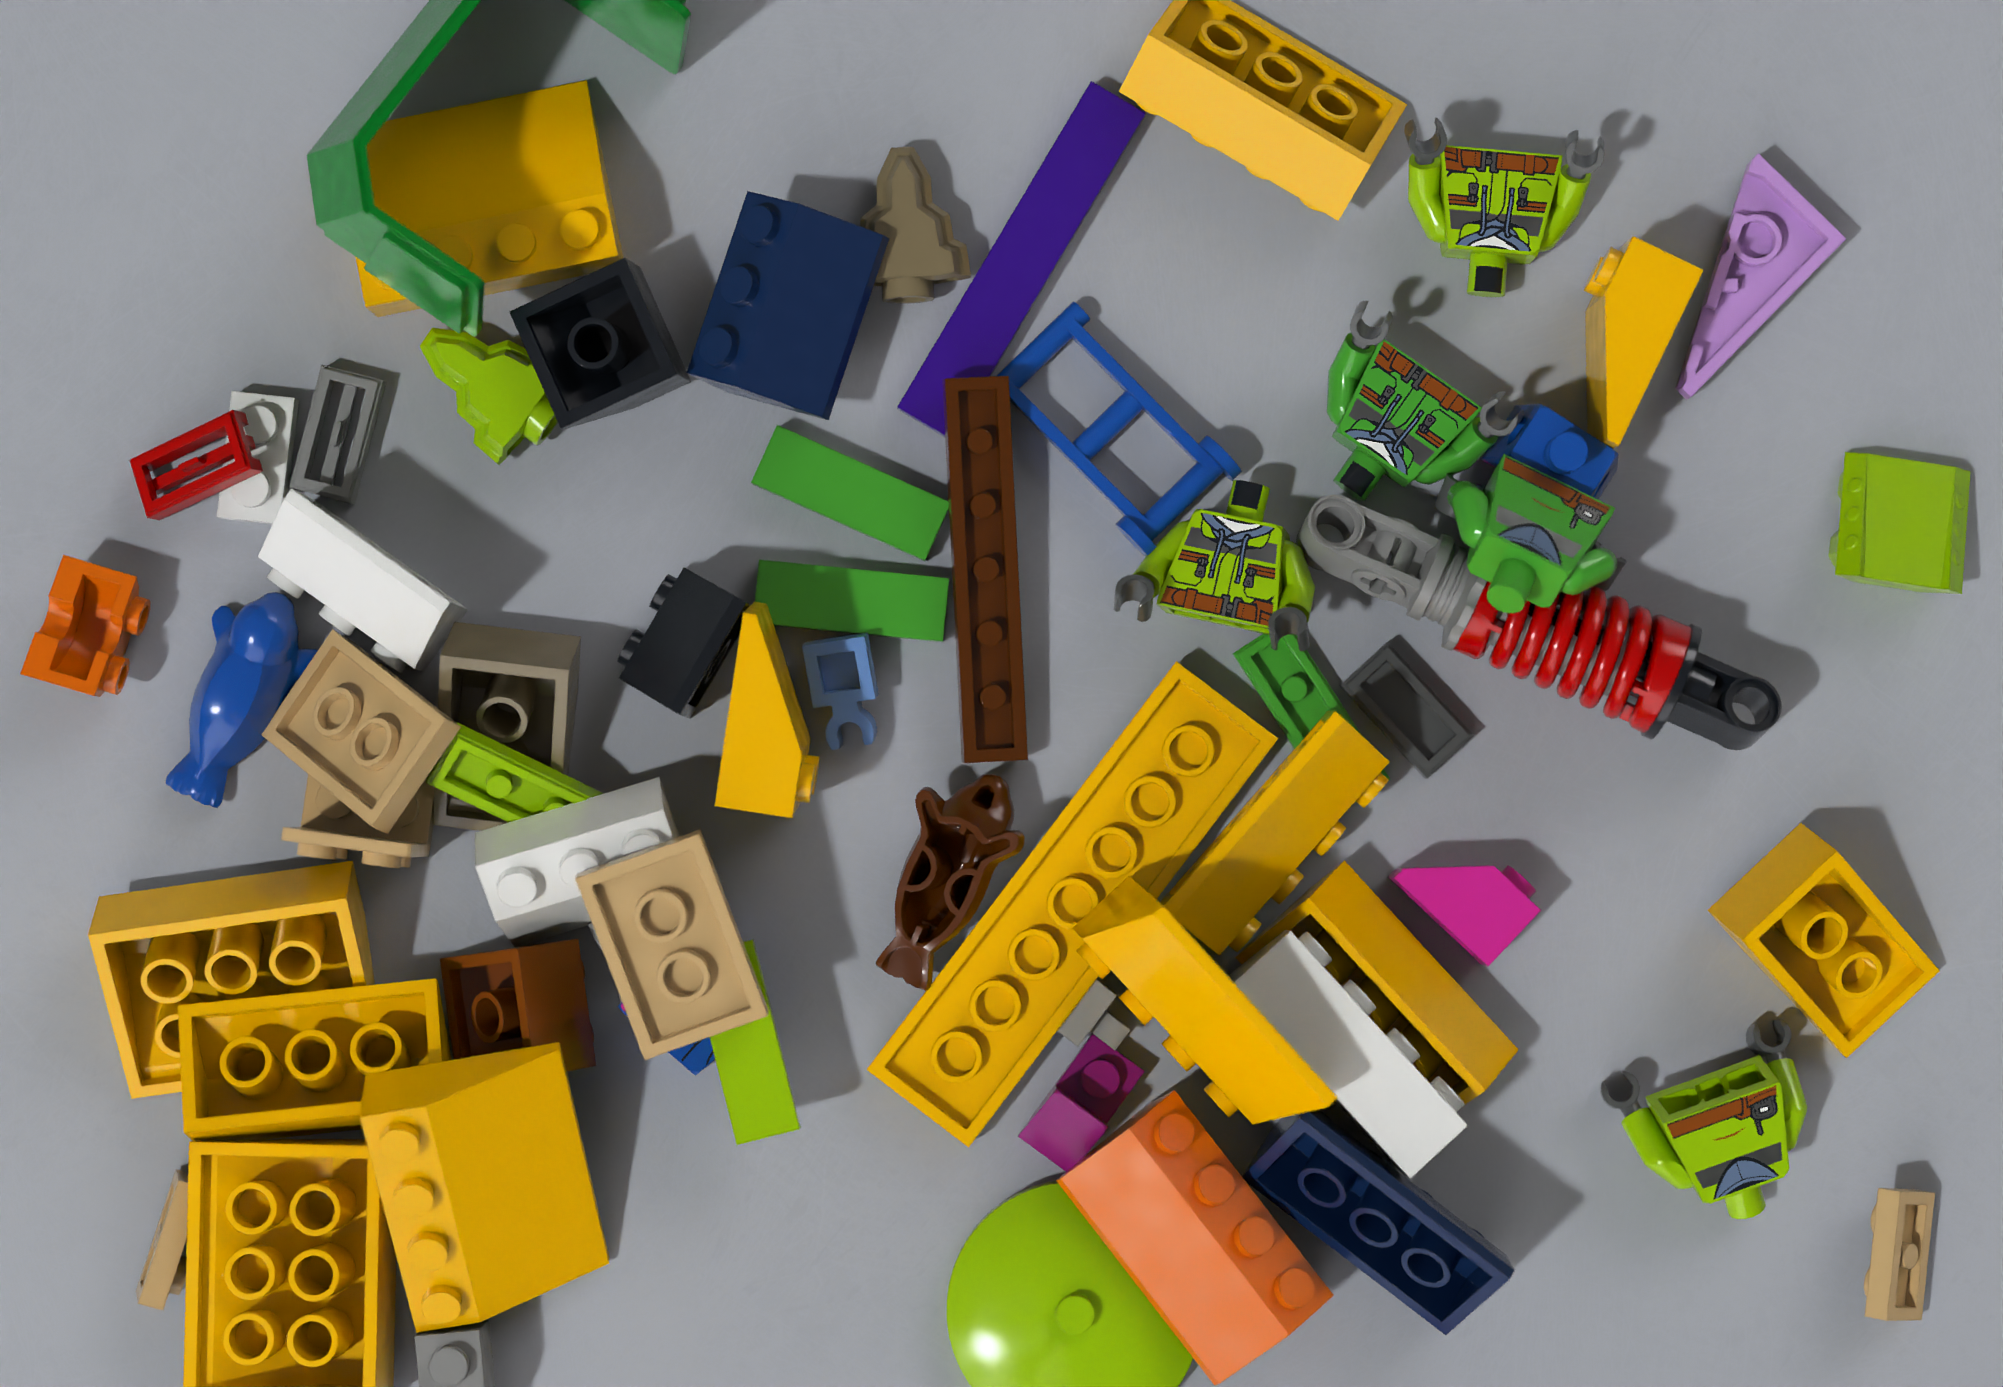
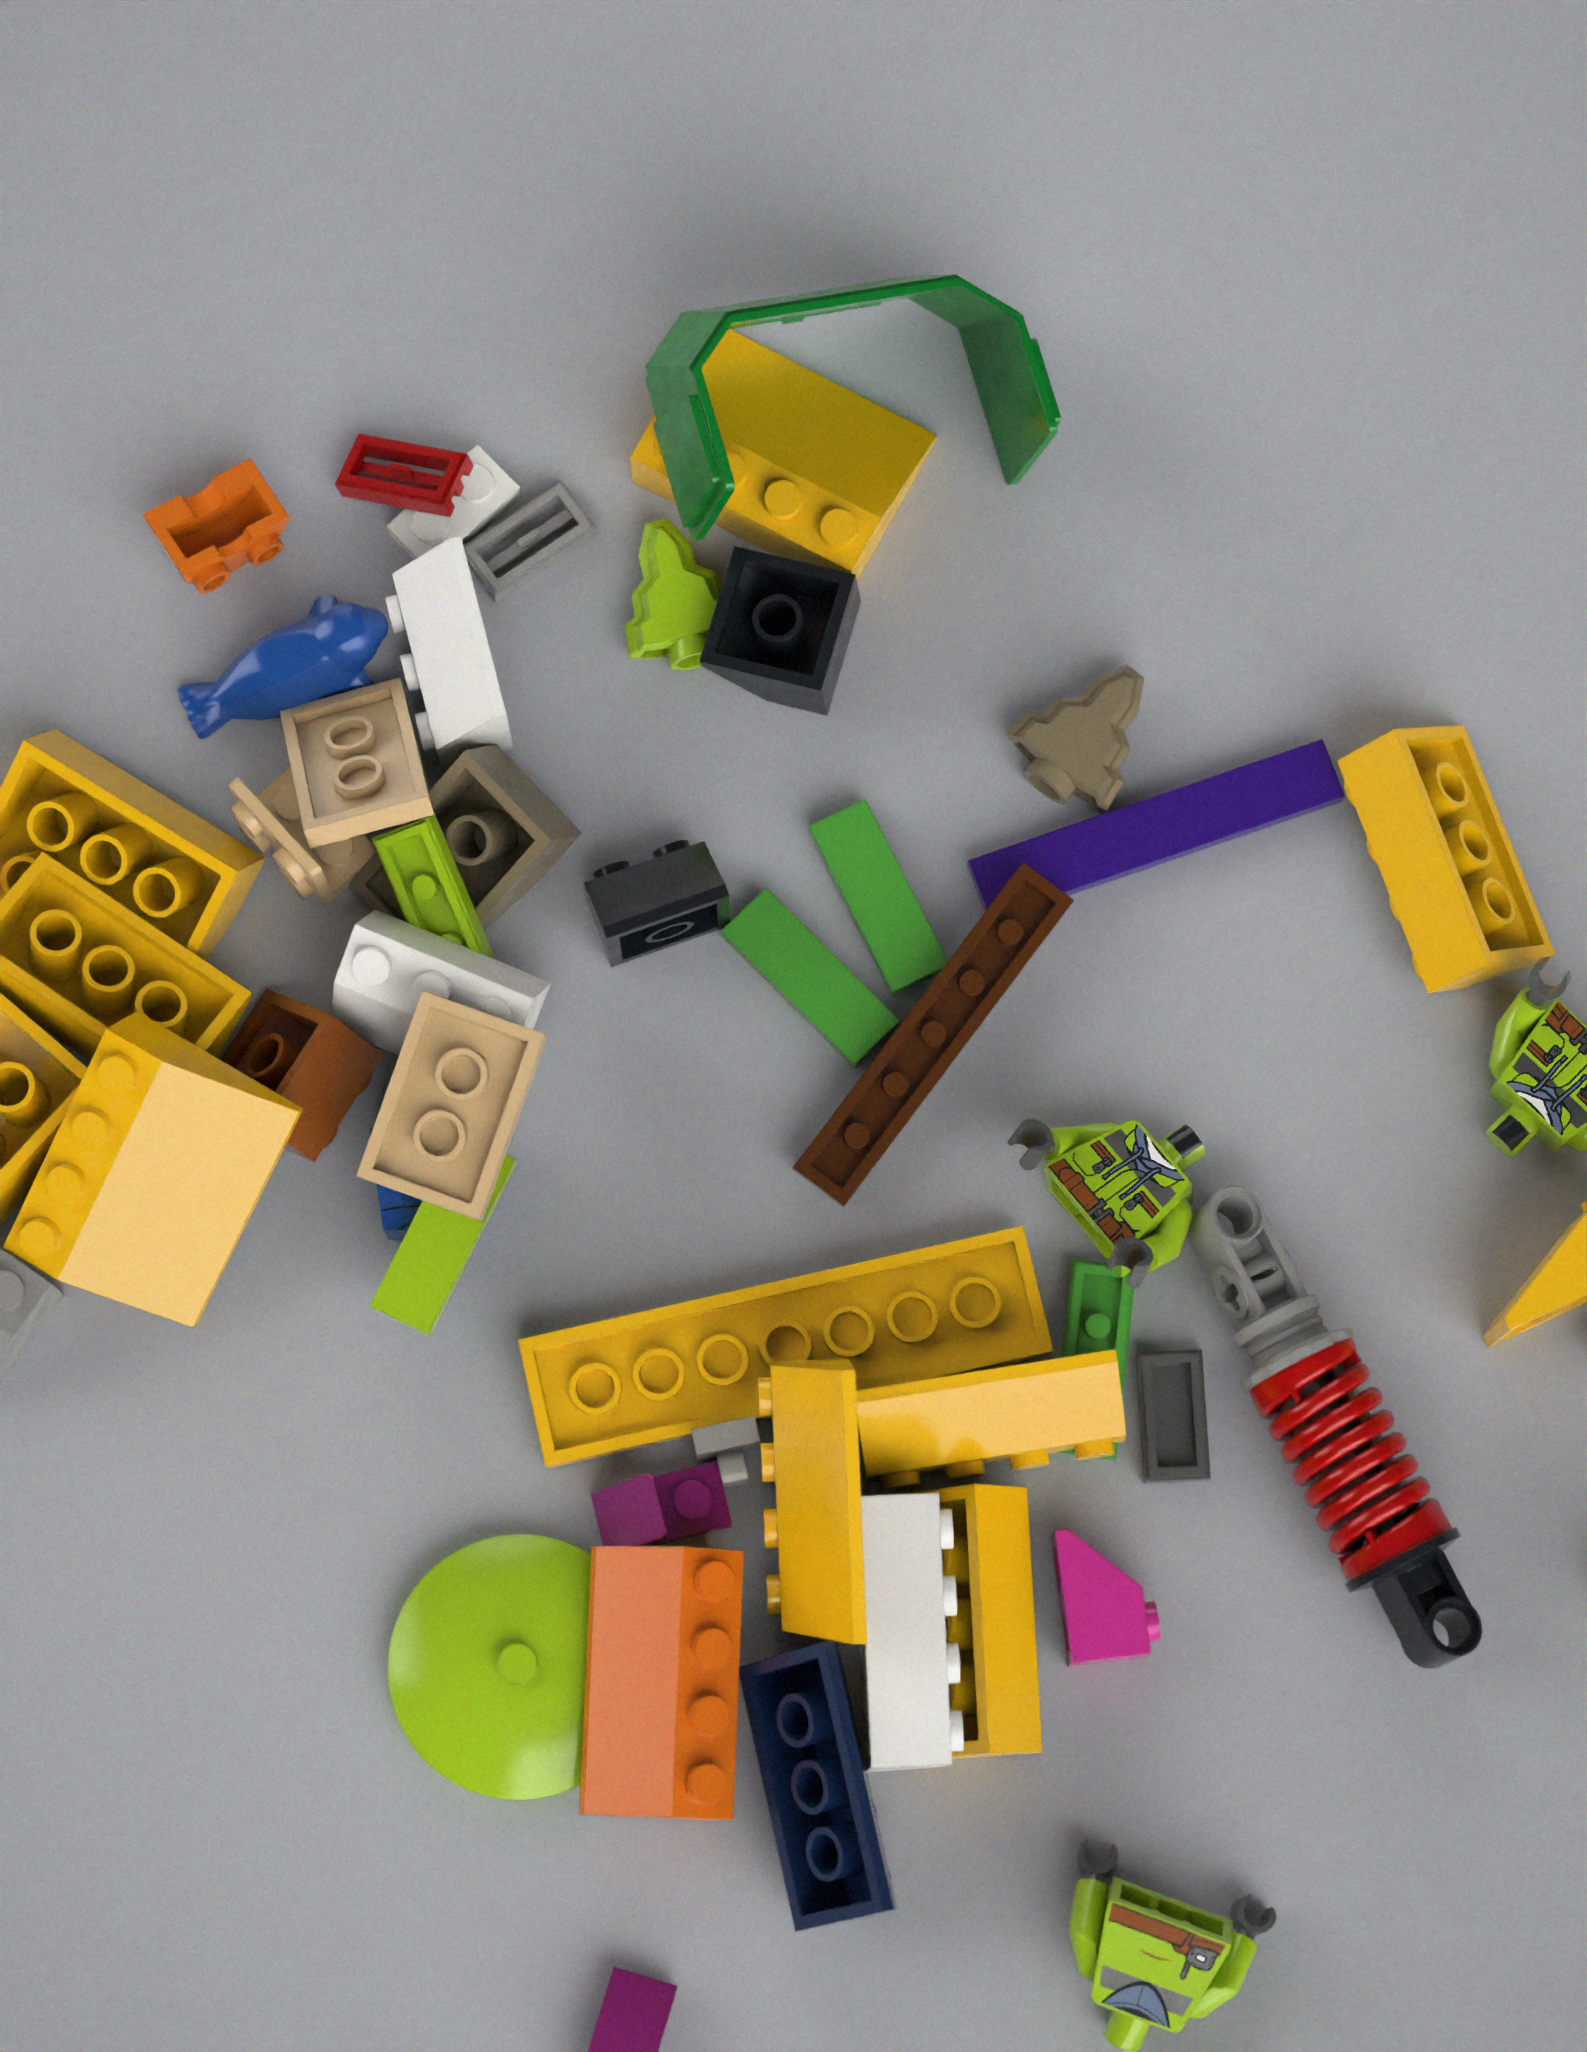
camera: 40 degrees right, 10 degrees down
(766, 735) = (660, 1011): yellow slope -> none
(787, 305) = (947, 713): dark blue slope -> none
(842, 677) = (754, 1026): medium blue plate -> none
(948, 872) = (709, 1239): reddish brown animal -> none
(1207, 454) = (1178, 1090): blue piece -> none
(1402, 415) = (1357, 1181): torso -> none
(1530, 535) = (1384, 1349): bright green torso -> none
(1557, 449) = (1451, 1316): blue torso -> none
(1824, 939) = (1361, 1874): yellow slope -> none

